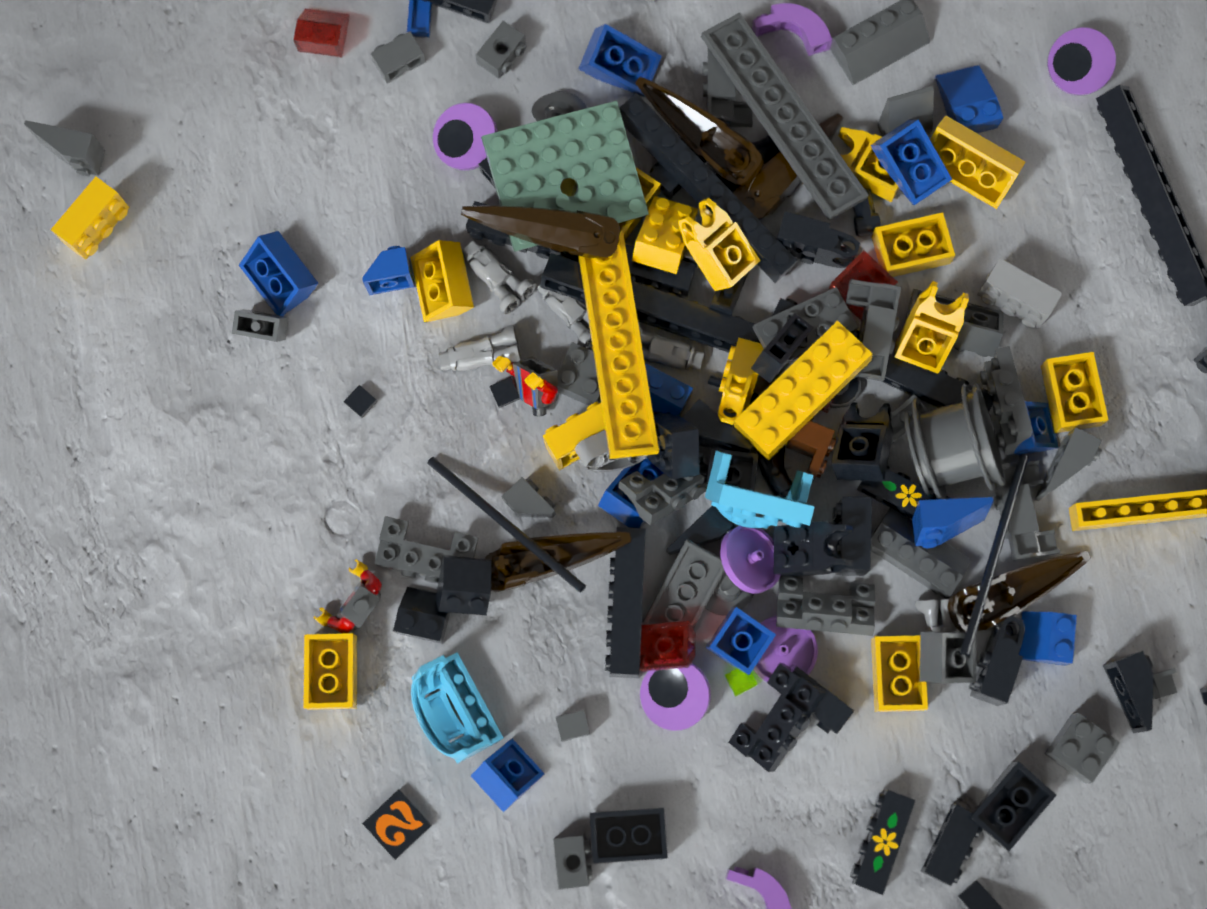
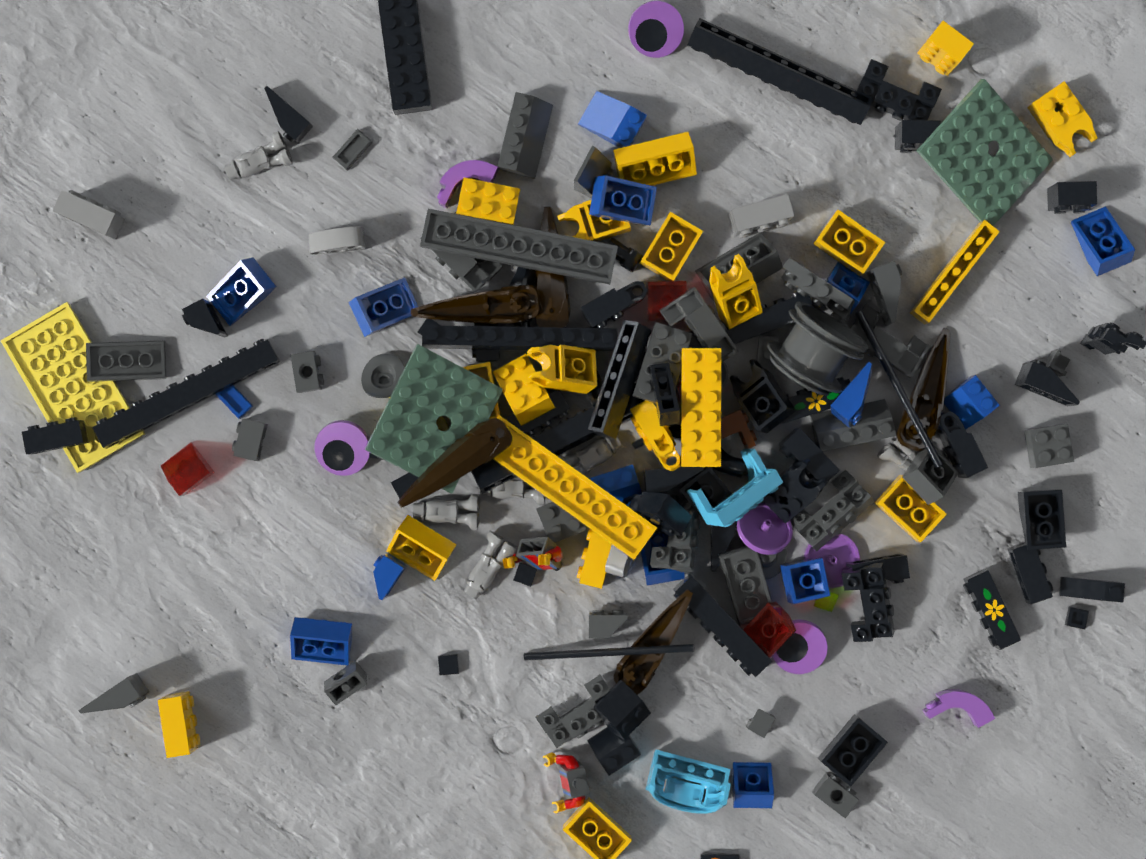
camera: 50 degrees left, 10 degrees up
(755, 302) = (619, 379): none -> black brick
(797, 58) = (488, 201): none -> yellow brick

